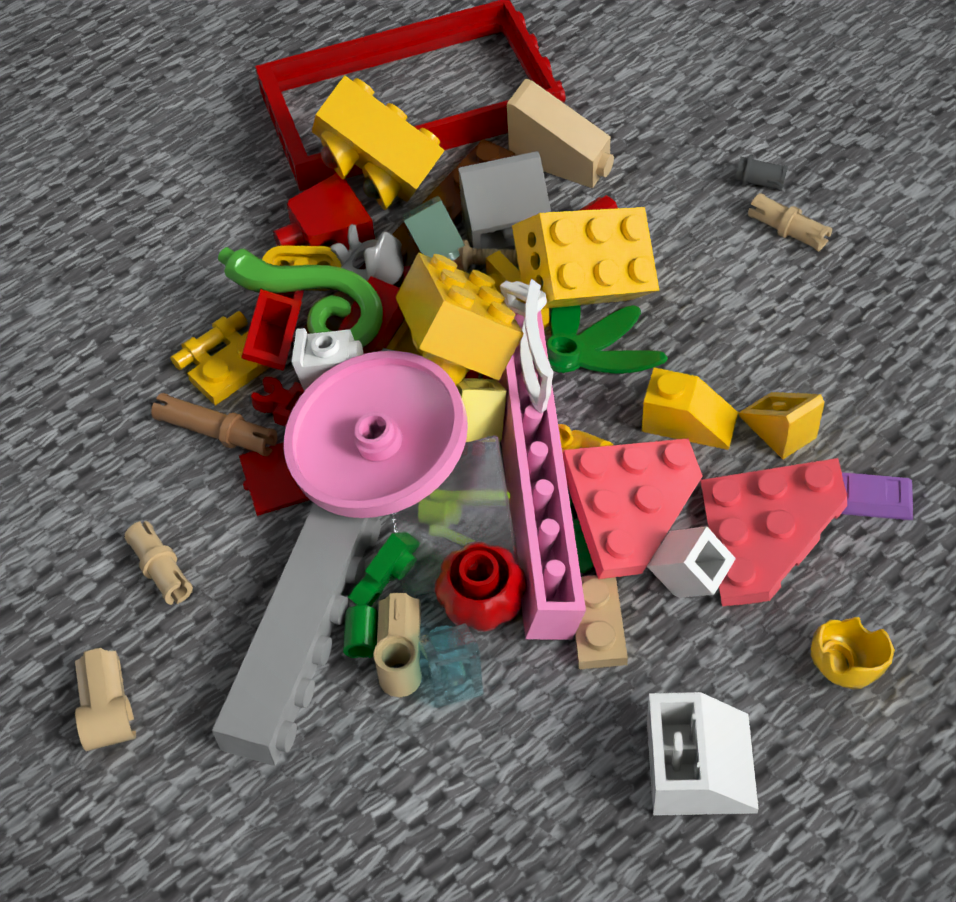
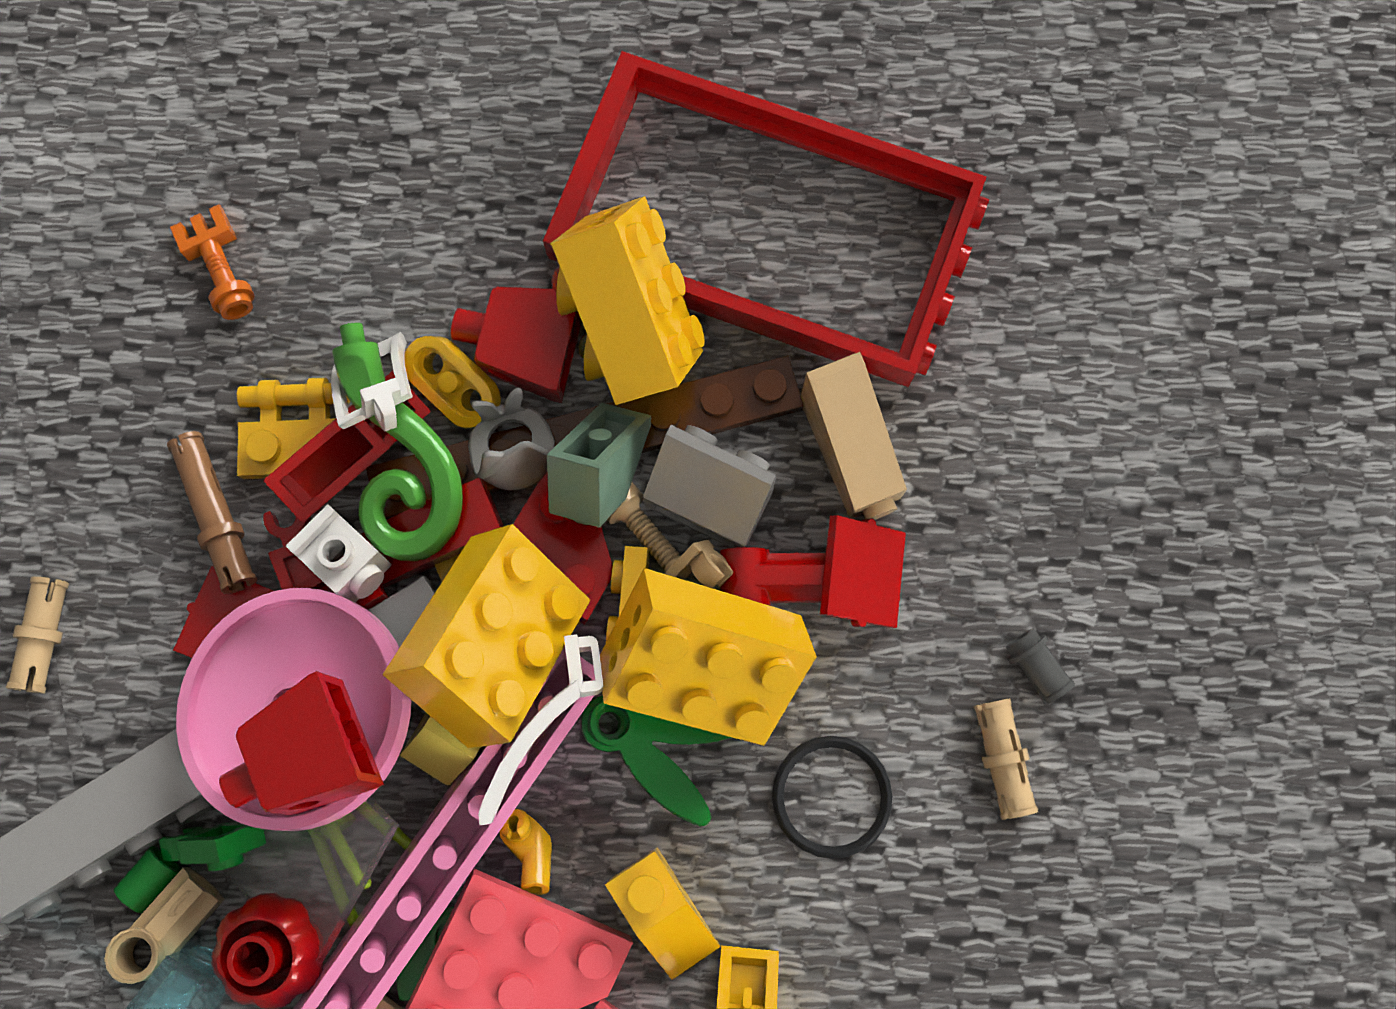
camera: 40 degrees right, 25 degrees up
(79, 306) = (230, 296): none -> orange hinge
(285, 259) = (380, 398): none -> white sword
(411, 417) = (302, 751): none -> red torso
(625, 191) = (862, 572): none -> red piece
(680, 307) = (884, 786): none -> black tyre

